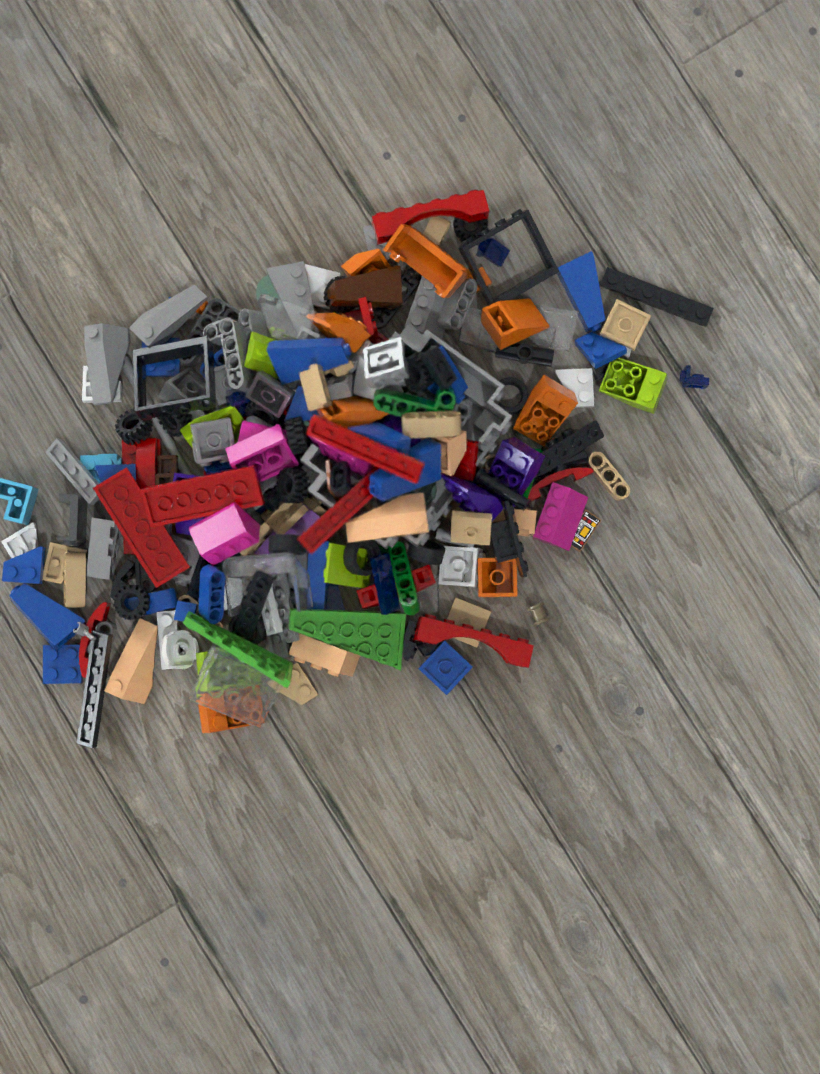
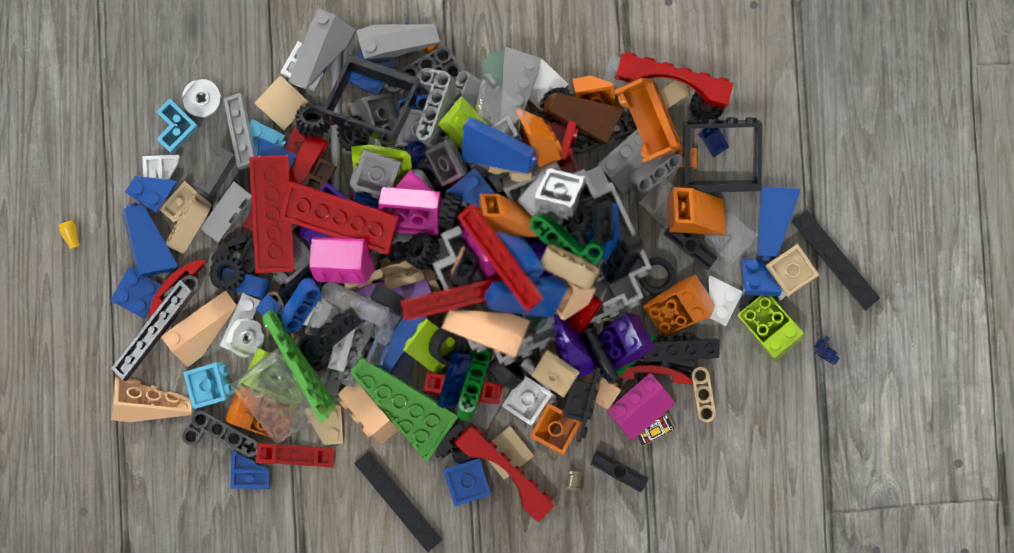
camera: 25 degrees right, 0 degrees up
(19, 453) = (212, 97): none -> white plate
(83, 631) = (171, 275): light grey hand -> none
(97, 427) = (281, 102): none -> tan slope
(119, 758) = (140, 402): none -> light nougat wedge
(170, 709) = (208, 385): none -> medium azure plate
(210, 747) = (224, 437): none -> dark grey beam
(249, 768) = (247, 473): none -> blue wing
(281, 728) = (294, 455): none -> red slope
(315, 388) = (487, 180): tan panel -> none
(340, 386) = (502, 187): light grey slope -> none
(395, 718) = (398, 501): none -> black plate
(474, 391) = (622, 258): none -> black beam
(586, 583) = (630, 478): none -> black piece

